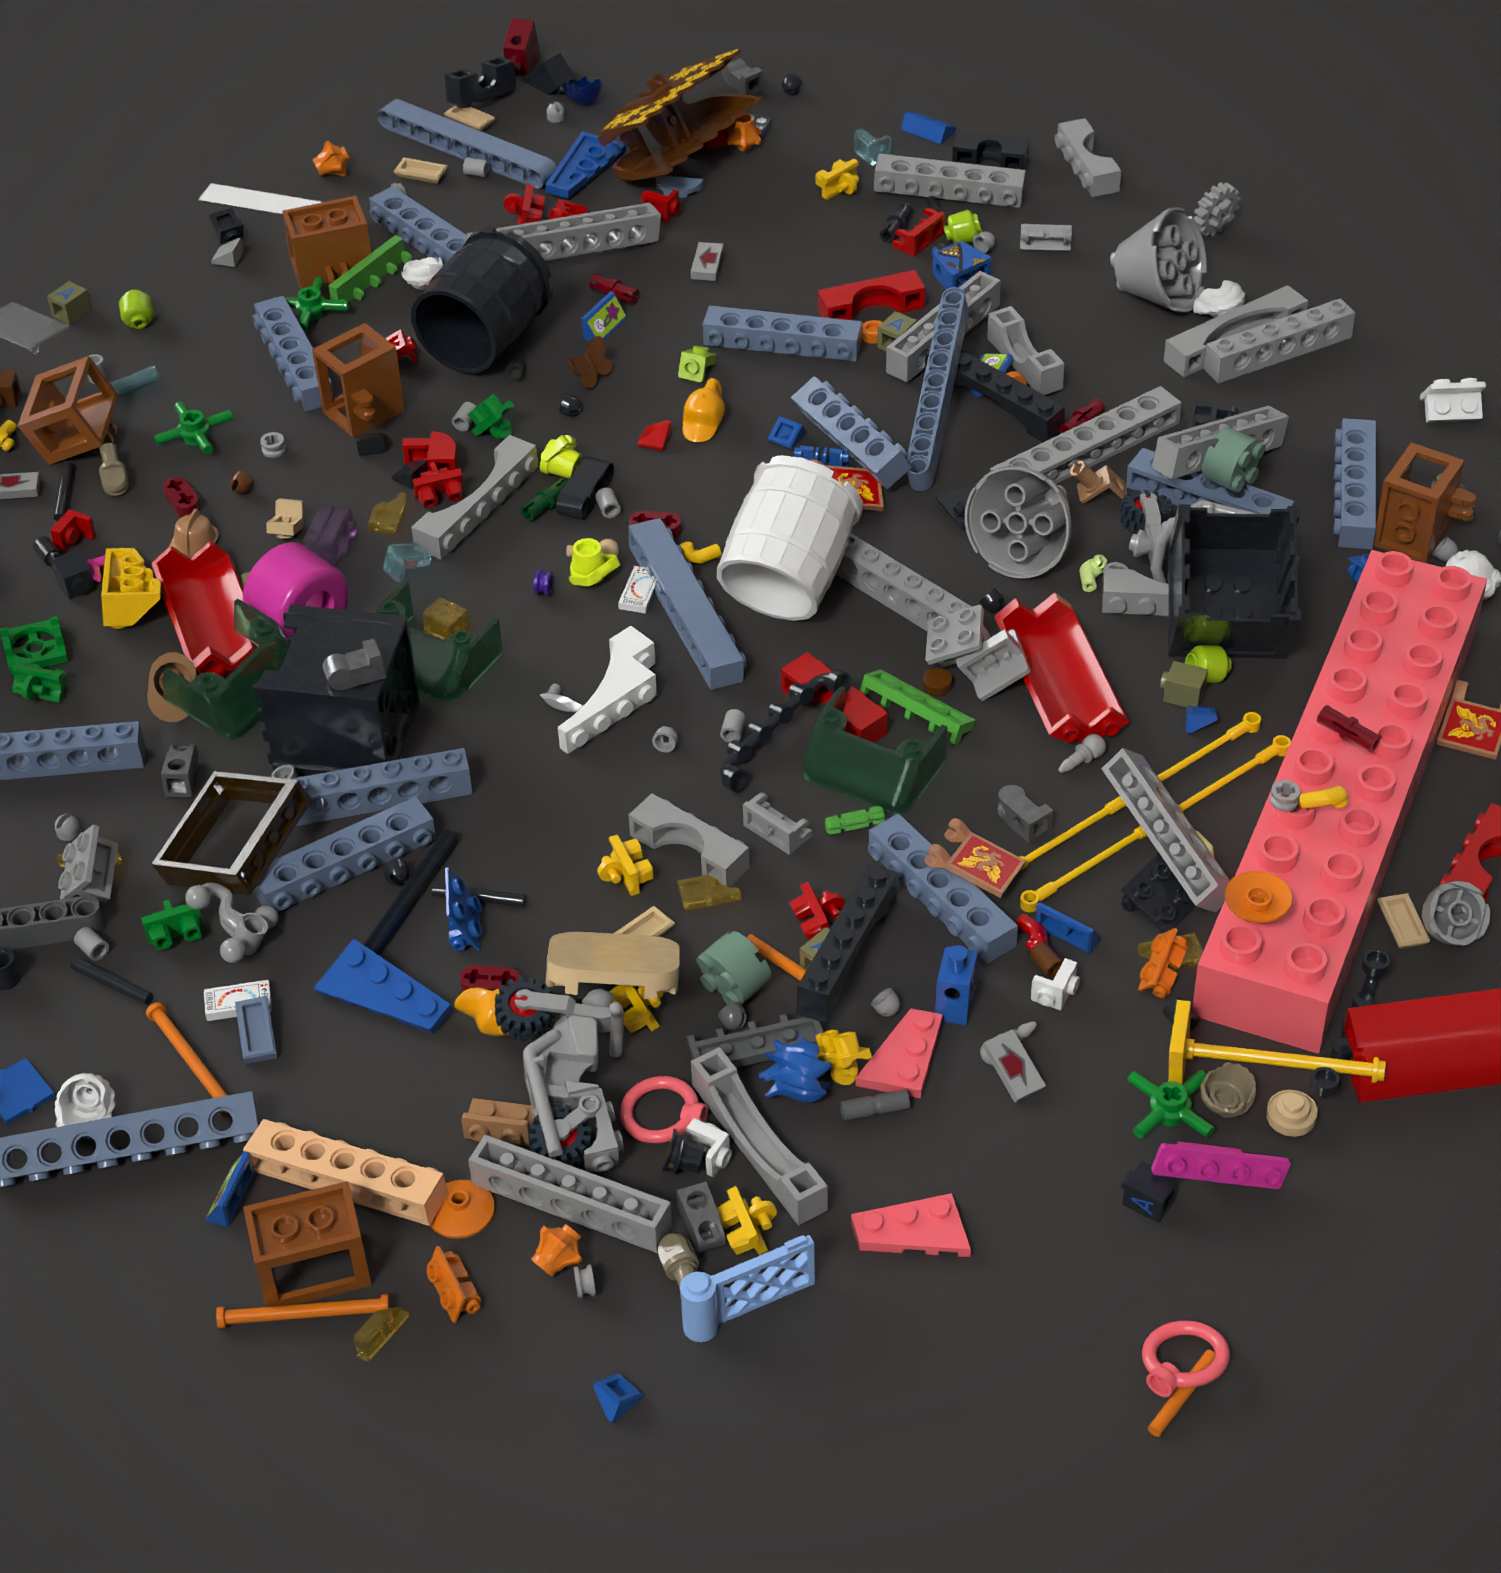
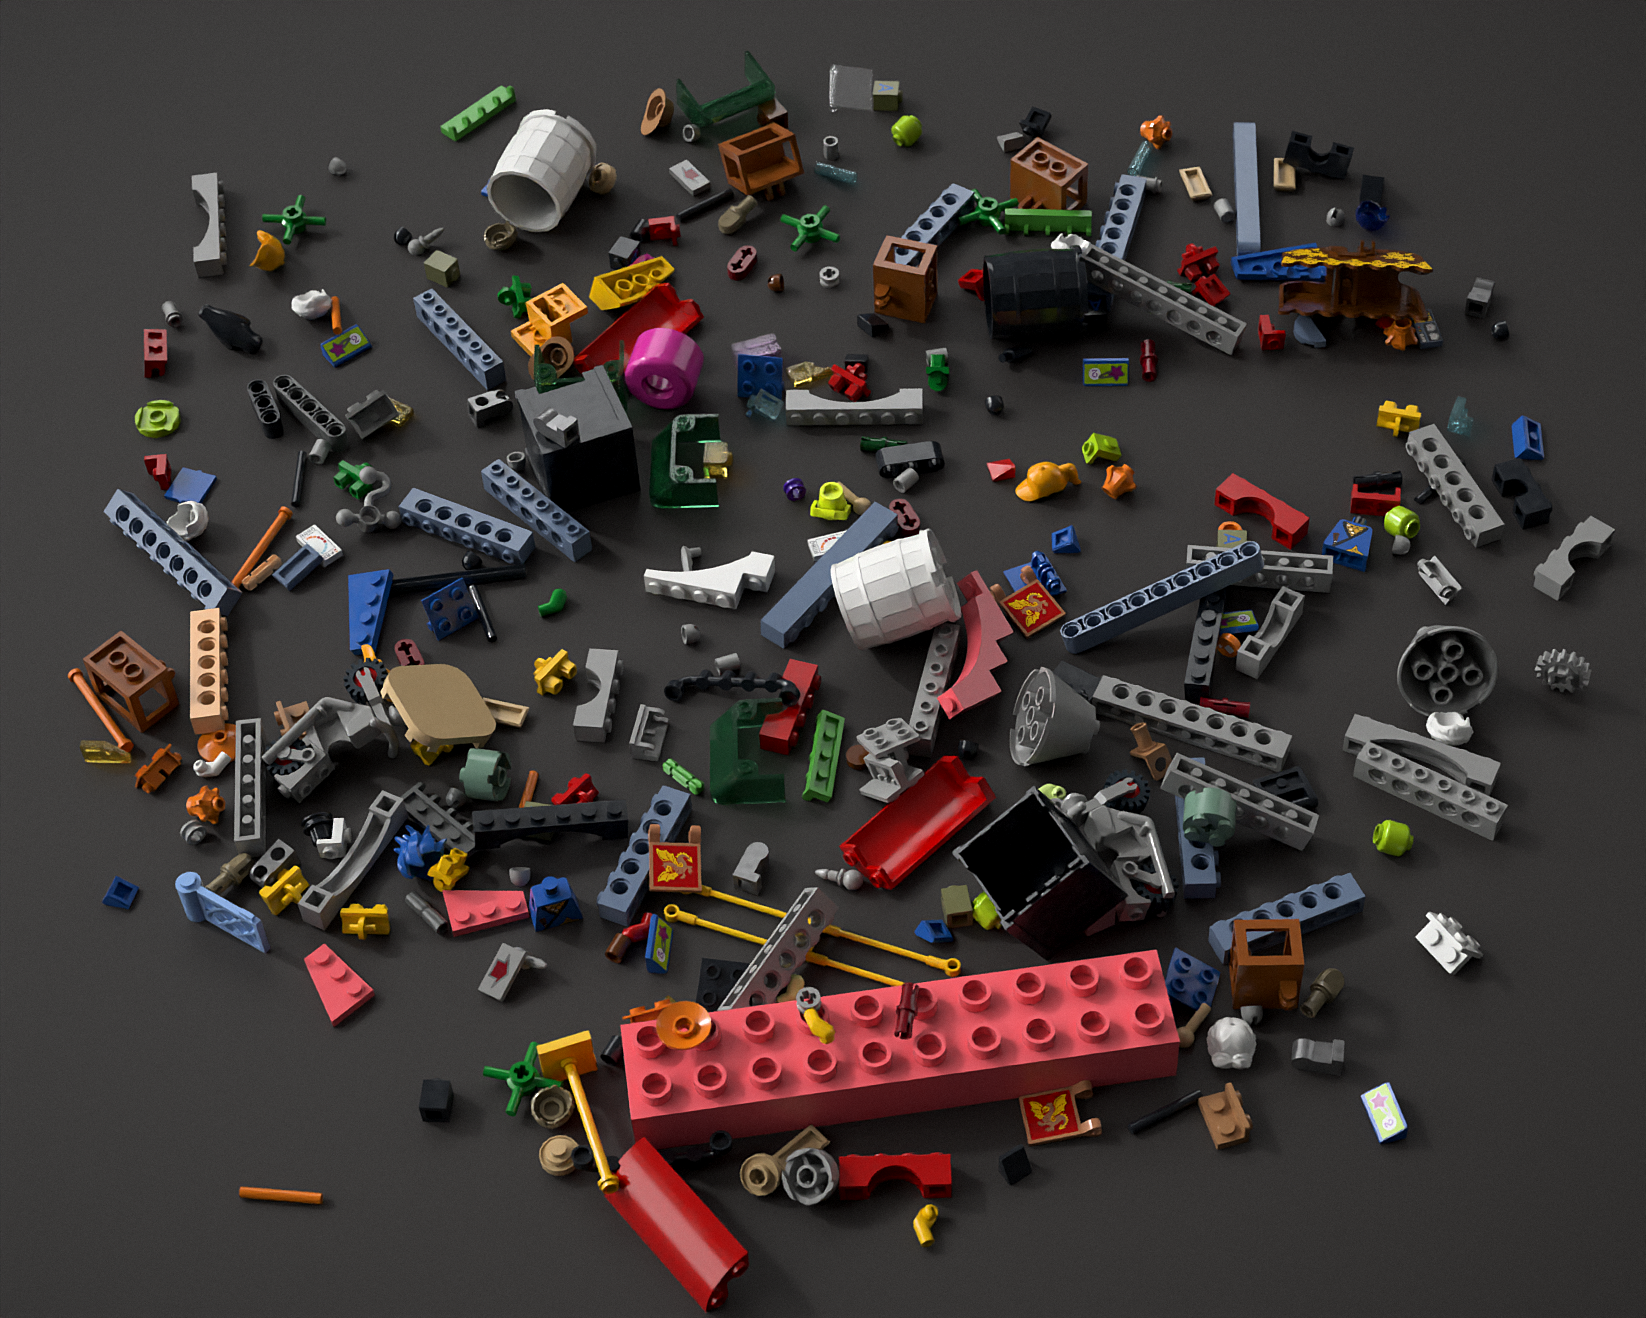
camera: 60 degrees right, 5 degrees up
(54, 657) = (539, 266): green piece -> none
(67, 827) = (409, 385): light grey hinge -> none
(115, 664) = (549, 317): none -> light orange bracket
(193, 533) = (707, 290): medium nougat piece -> none
(228, 1068) = (261, 572): none -> light nougat axle
(232, 1191) = (167, 627): blue slope -> none
(252, 199) = (1091, 130): white sticker -> none
(288, 518) = (754, 327): tan bracket -> none
(288, 805) = (440, 476): dark brown window -> none
(346, 184) = (1140, 158): none -> clear light blue piece
(369, 539) = (759, 373): none -> blue hinge
(438, 449) = (880, 364): red brick -> none
(496, 1227) = (214, 768): none -> white arm
(524, 50) = (1383, 154): dark red torso -> none
(524, 827) = (555, 604): none -> green arm
(560, 457) = (927, 426): neon yellow piece -> none
(591, 363) = (1042, 391): reddish brown animal -> none
(690, 1109) = (357, 817): coral piece -> none
(705, 892) = (561, 728): clear yellow tile -> none
(707, 261) = (1230, 394): light grey tile -> none
(752, 365) = (1118, 481): none -> orange rock
(782, 333) = (1174, 480): sand blue brick -> none
(851, 432) = (1078, 574): sand blue brick -> none
(852, 1160) = (365, 921): none -> yellow hips
(904, 539) = (985, 629): none -> coral arch
(1056, 992) = (595, 966): white bracket -> none
(1166, 1377) = (280, 1177): coral piece -> none
(1220, 1165) = (478, 1125): dark pink bracket -> none
(1314, 383) = (1392, 838): none -> lime head
(1421, 956) = (760, 1174): none -> tan plate

